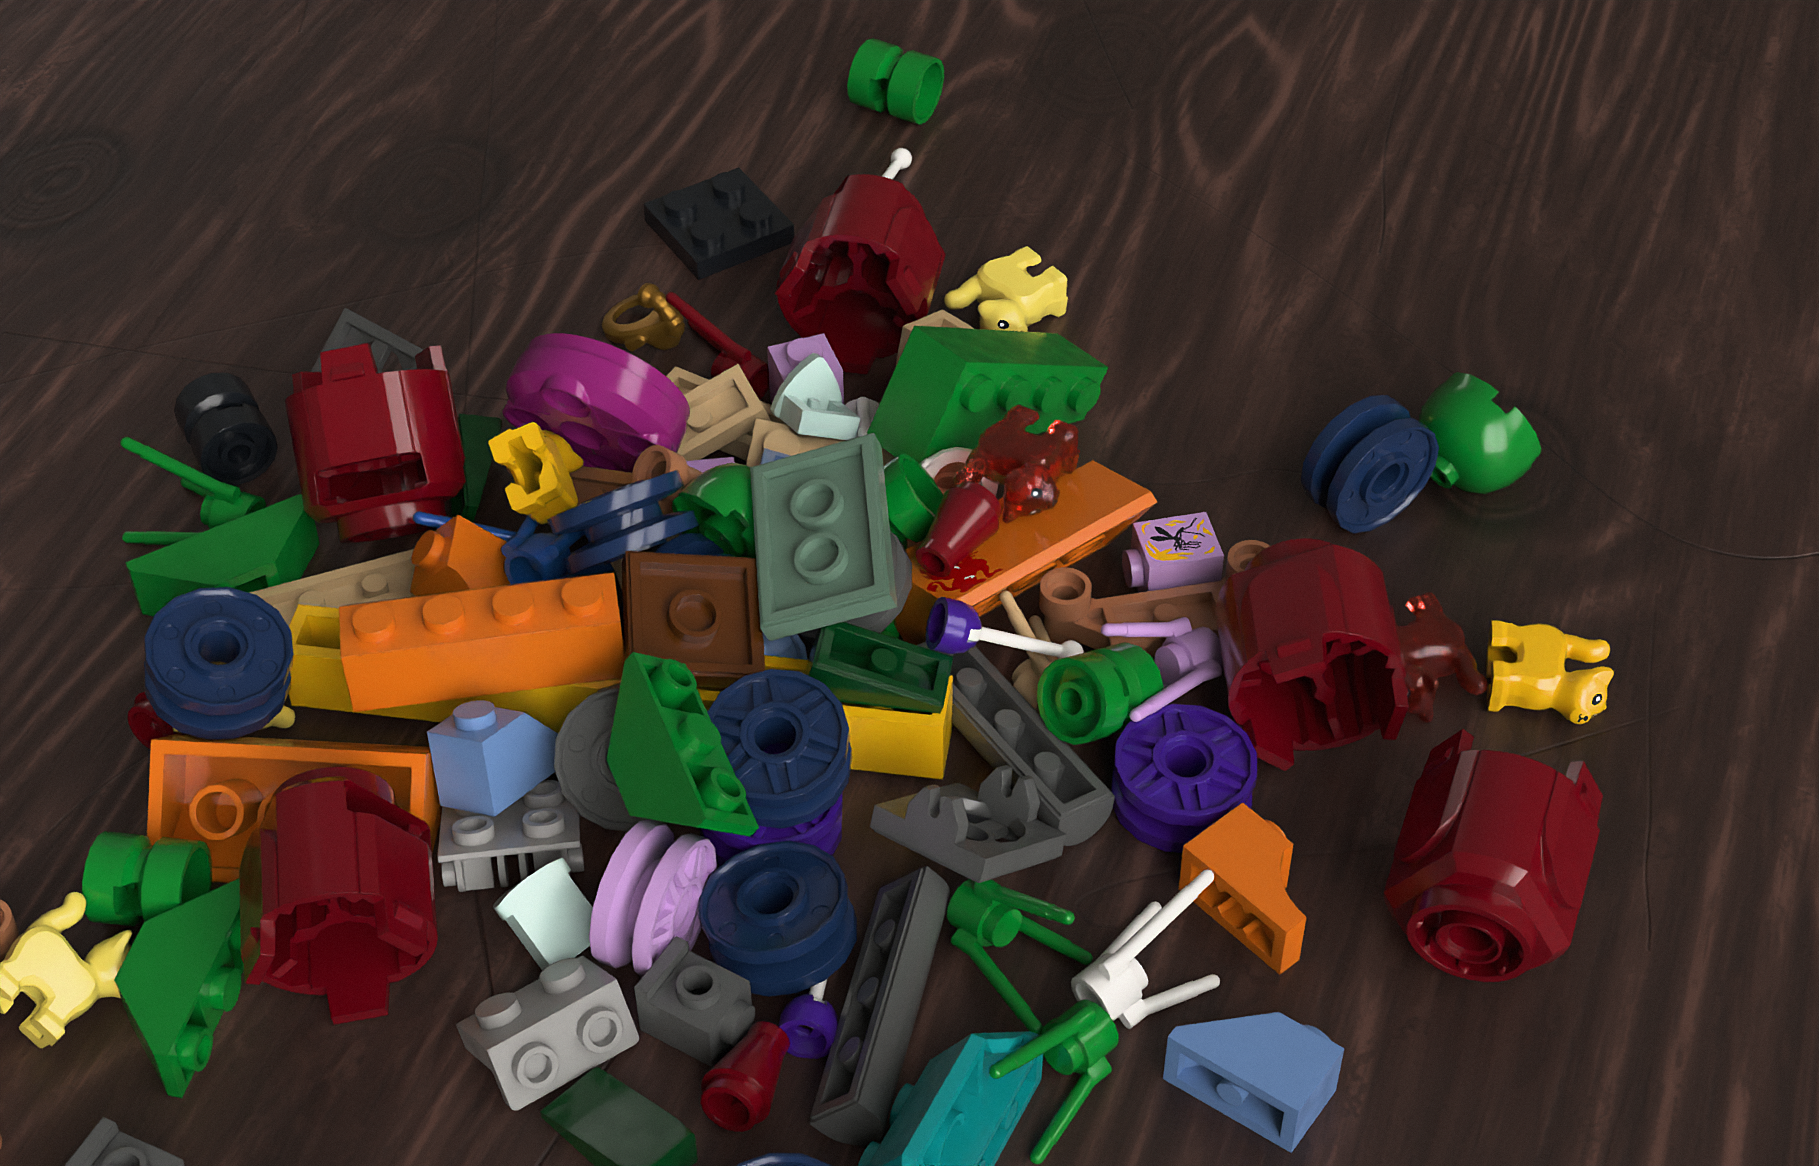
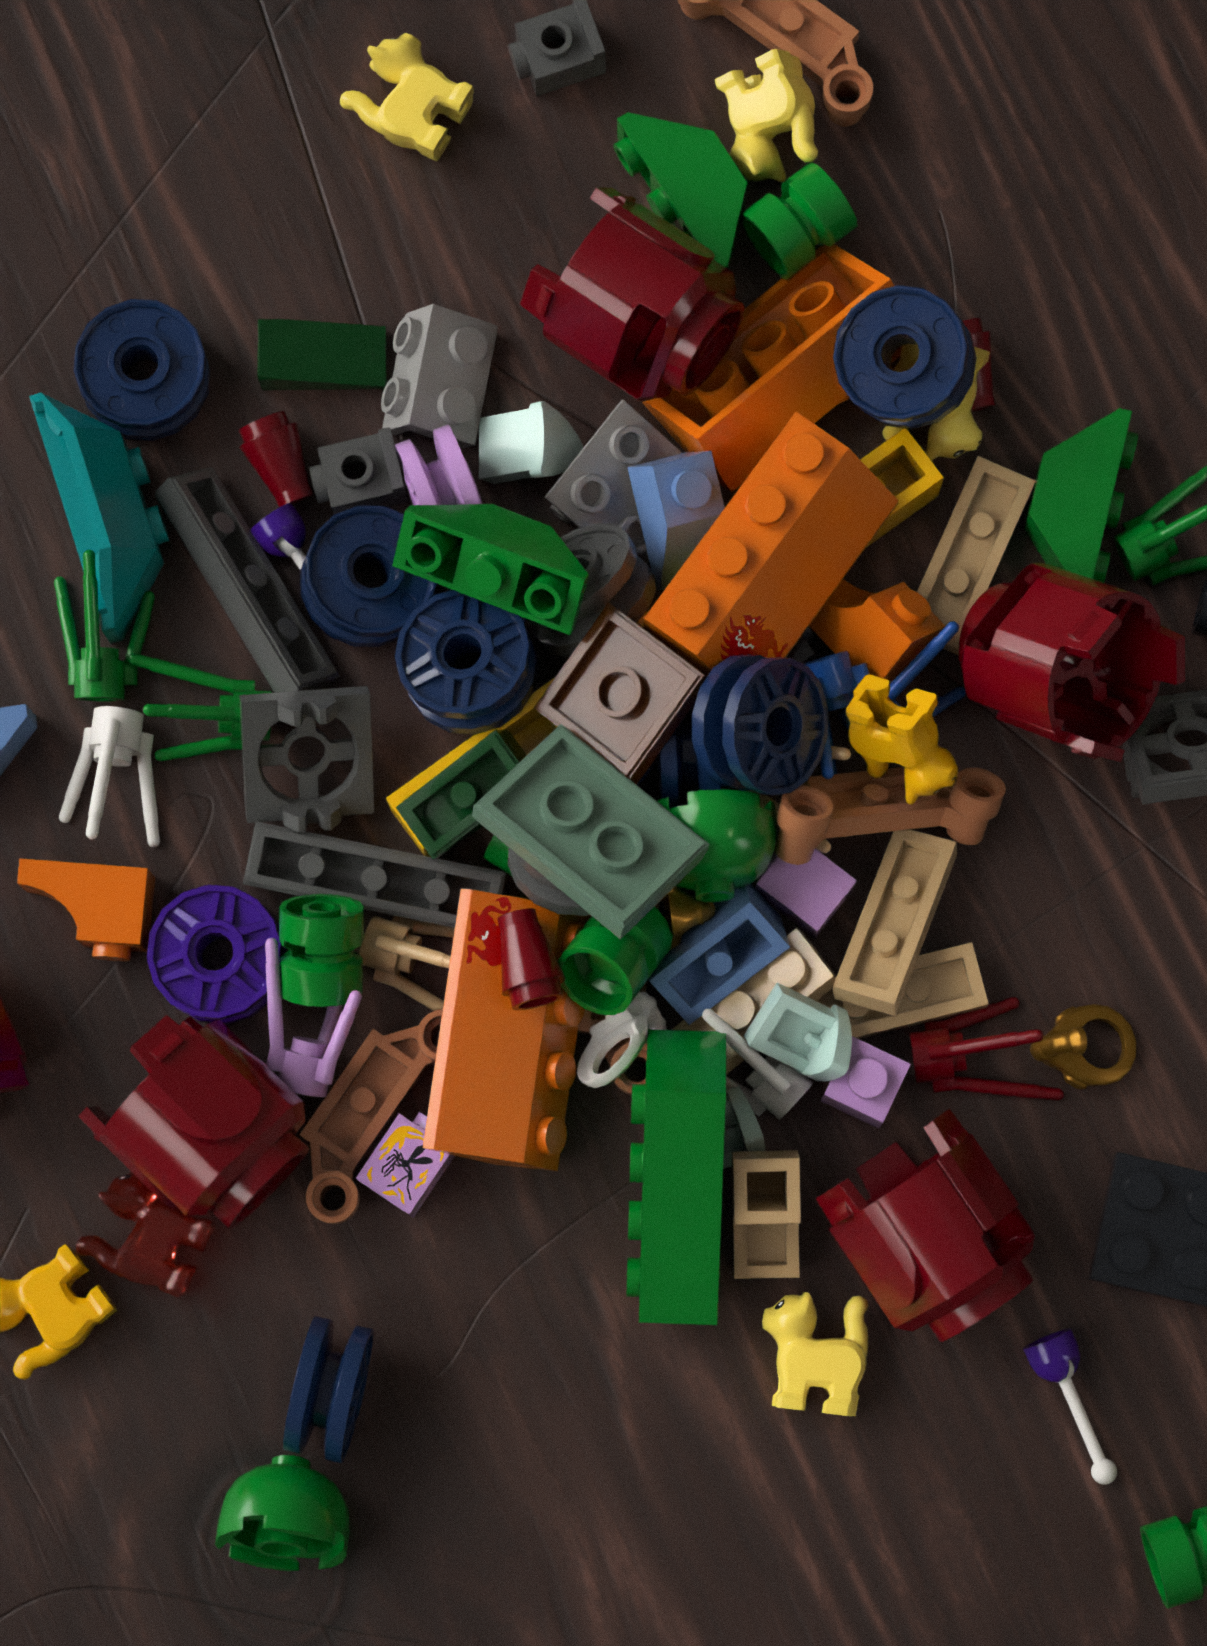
camera: 140 degrees right, 35 degrees up
(475, 435) = (1025, 755): dark green slope -> none
(595, 399) = (919, 826): magenta piece -> none
(957, 627) = (444, 874): dark purple hinge -> none
(1023, 462) = (560, 1081): clear red animal -> none

